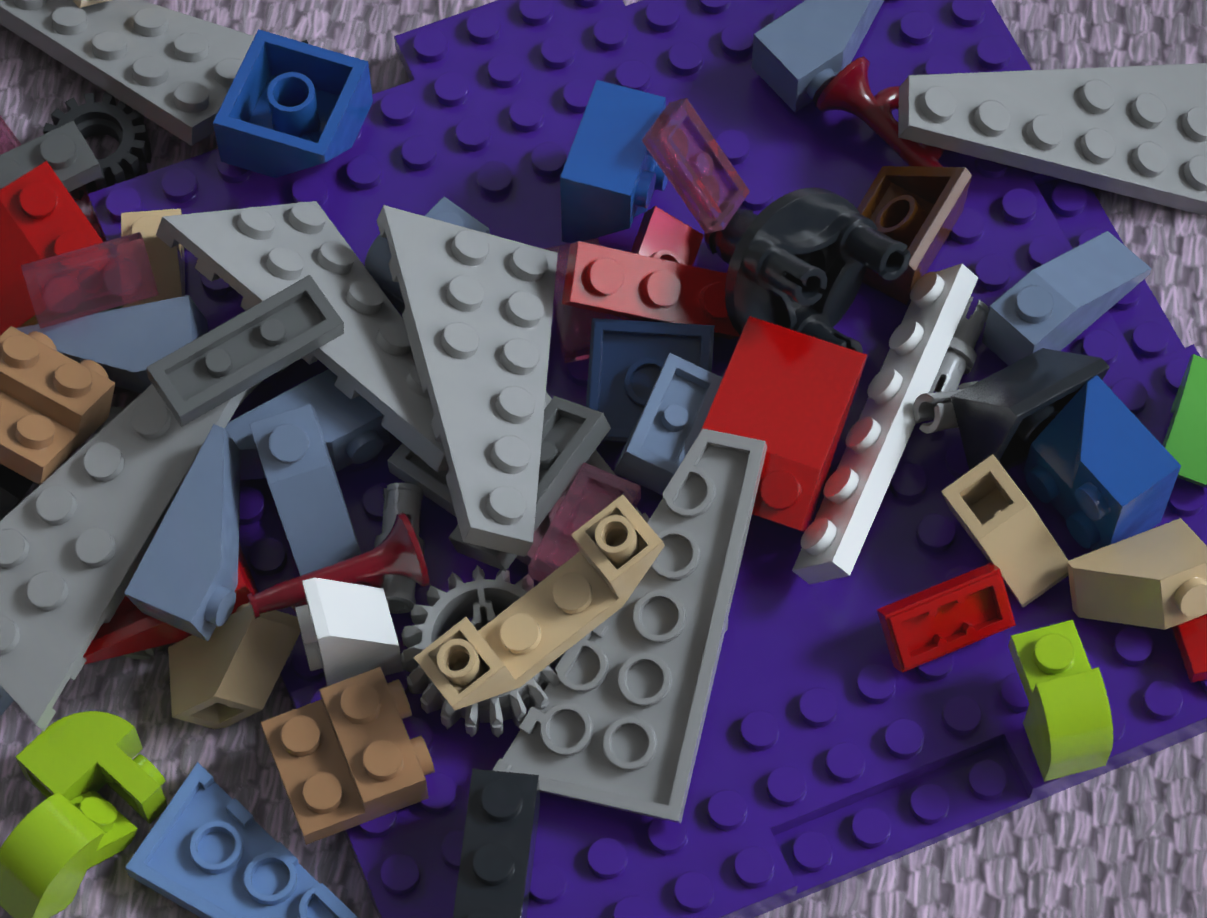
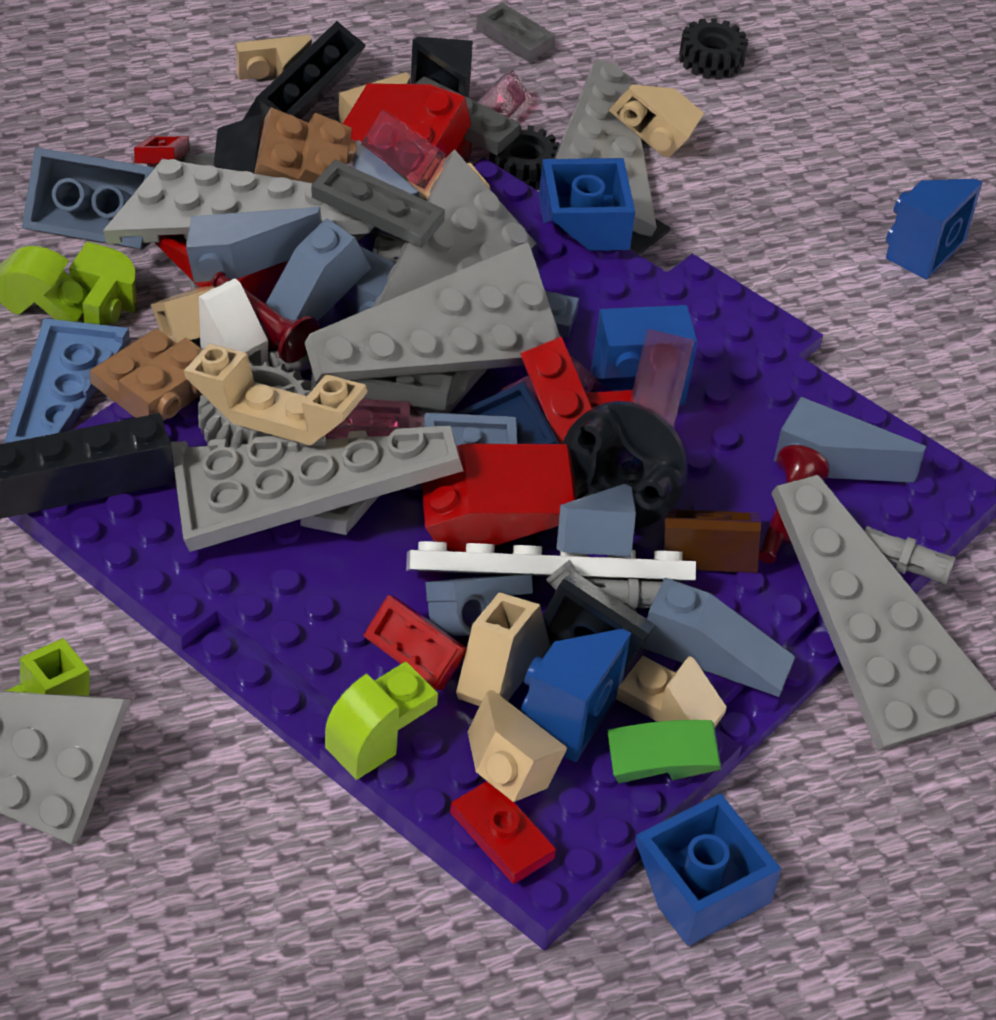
camera: 60 degrees right, 15 degrees down
(891, 327) = (598, 523): none -> sand blue slope
(911, 534) = (459, 602): none -> sand blue plate
(1015, 45) = (913, 557): none -> light grey pin
(1140, 369) = (669, 694): none -> tan slope

